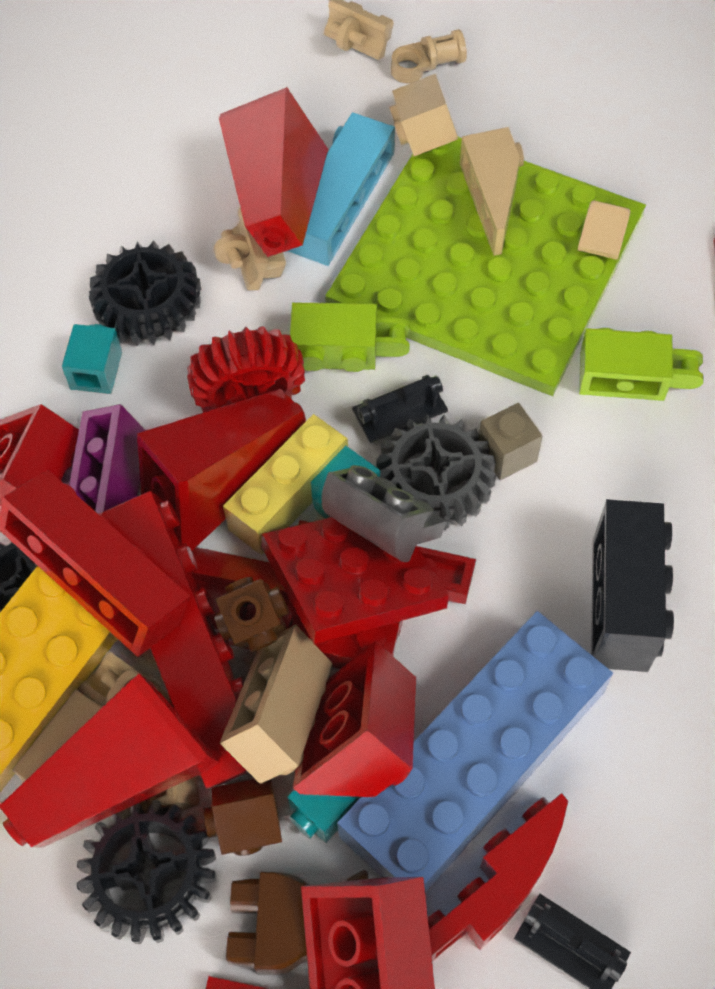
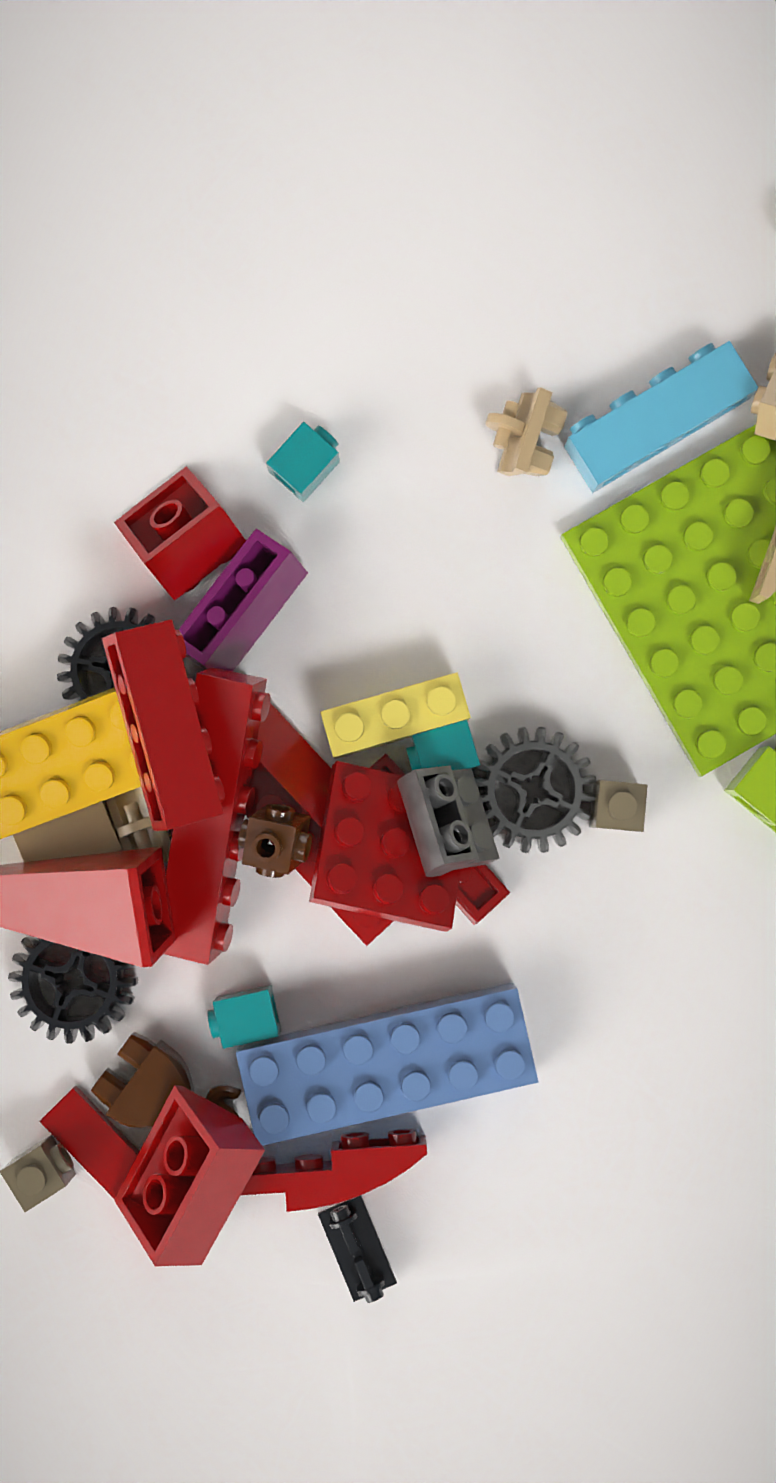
camera: 30 degrees right, 25 degrees up
(120, 287) = (377, 409): black gear -> none
(211, 456) = (342, 655): red slope -> none
(243, 817) = (172, 990): reddish brown brick -> none
(244, 367) = (426, 584): red gear -> none
(274, 168) = (598, 376): slope -> none
(277, 706) = (248, 931): tan brick -> none
(346, 335) = (545, 593): lime brick -> none
(361, 729) = (301, 989): red slope -> none
(393, 410) = (549, 700): black hinge -> none
(631, 585) = (613, 1017): black brick -> none

